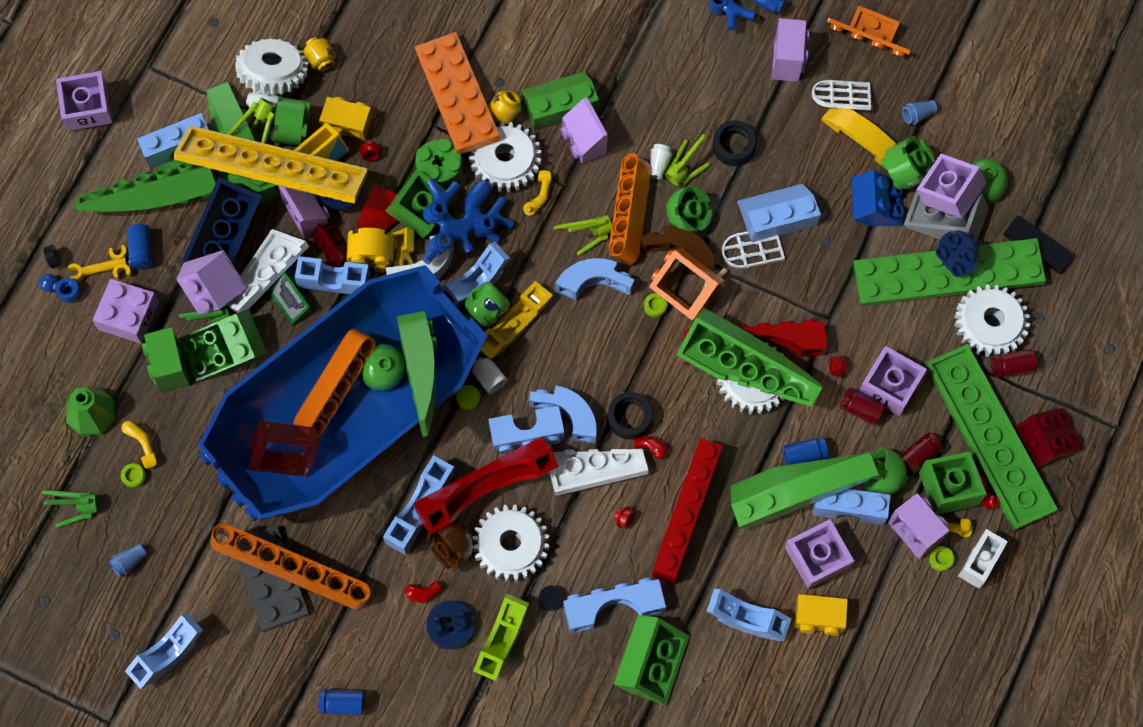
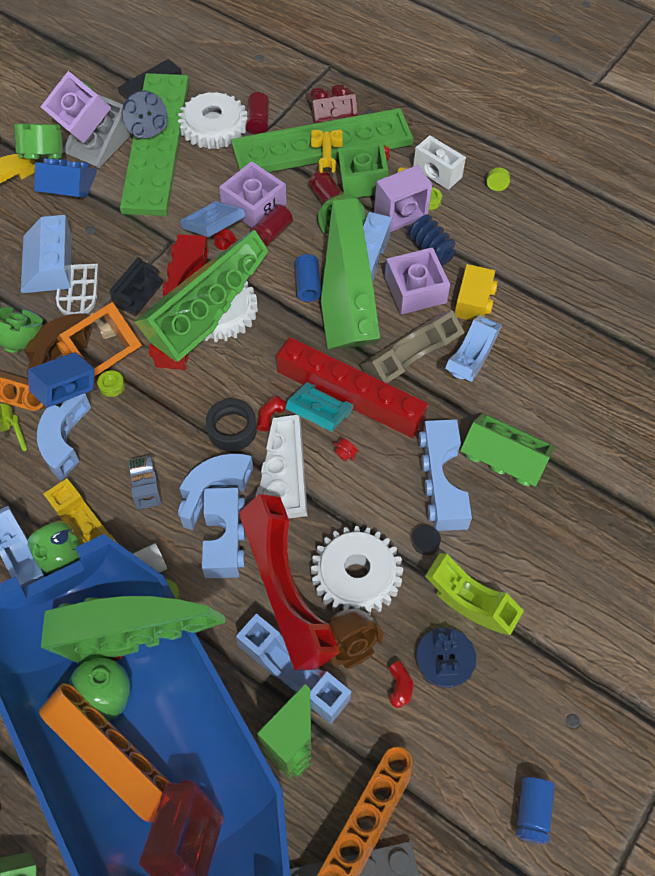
camera: 80 degrees left, 10 degrees down
(363, 510) = (288, 735): none -> bright green slope
(562, 357) = (144, 482): none -> sand blue leg
(633, 263) = (61, 379): none -> blue brick
(655, 484) = (318, 407): none -> teal plate
(756, 574) = (424, 339): none -> dark tan arch
(760, 299) = (136, 287): none -> black hinge
(854, 349) = (212, 218): none -> medium blue plate
(877, 563) = (428, 235): none -> dark blue piece
(980, 625) = (498, 179): none -> lime tile
(983, 437) = (326, 140): none -> yellow bar

